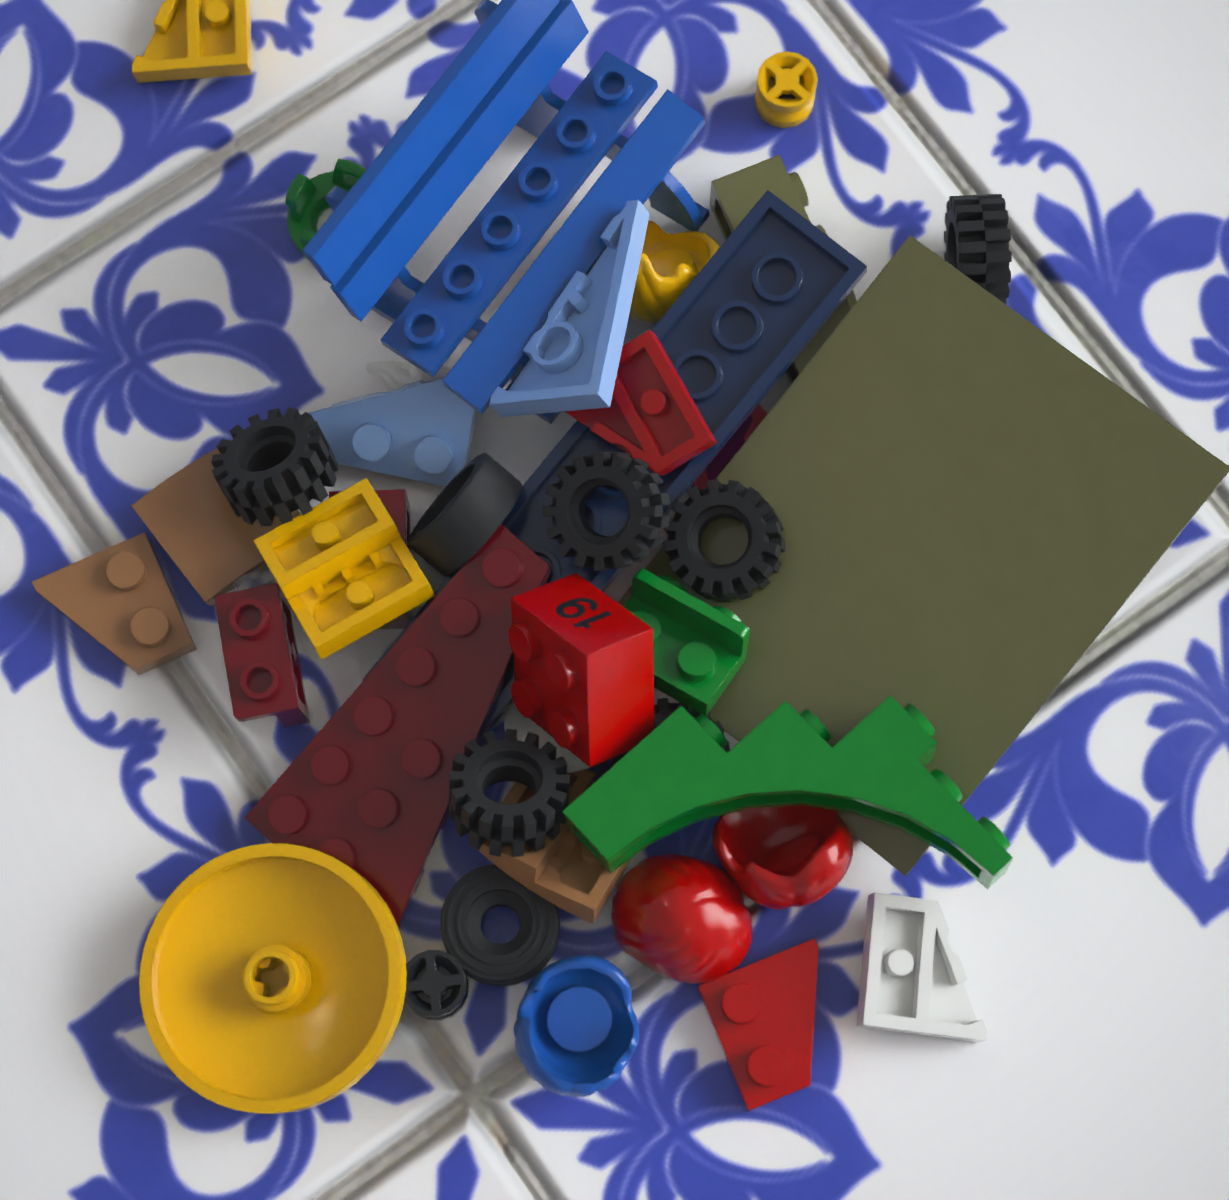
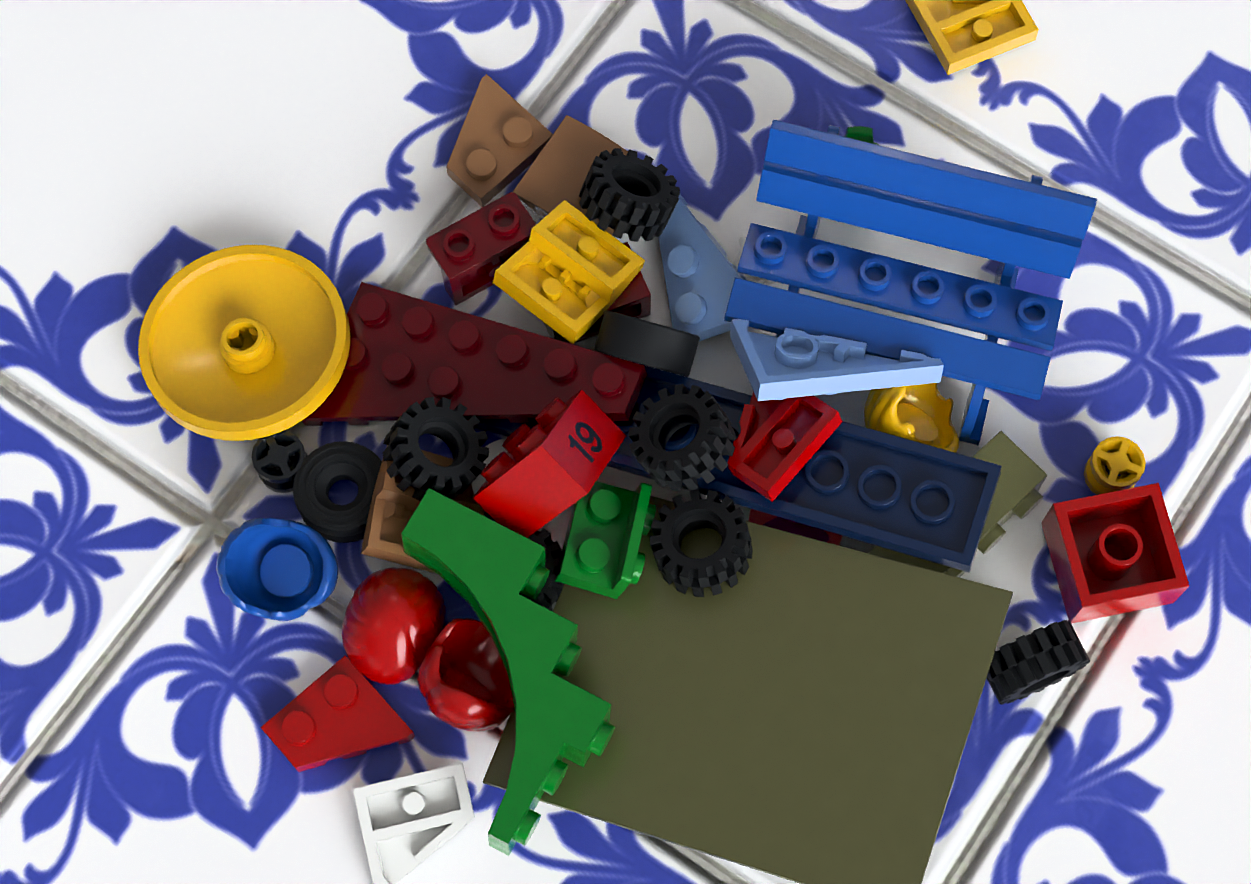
camera: 70 degrees right, 5 degrees down
(887, 125) = (1114, 553): none -> red brick

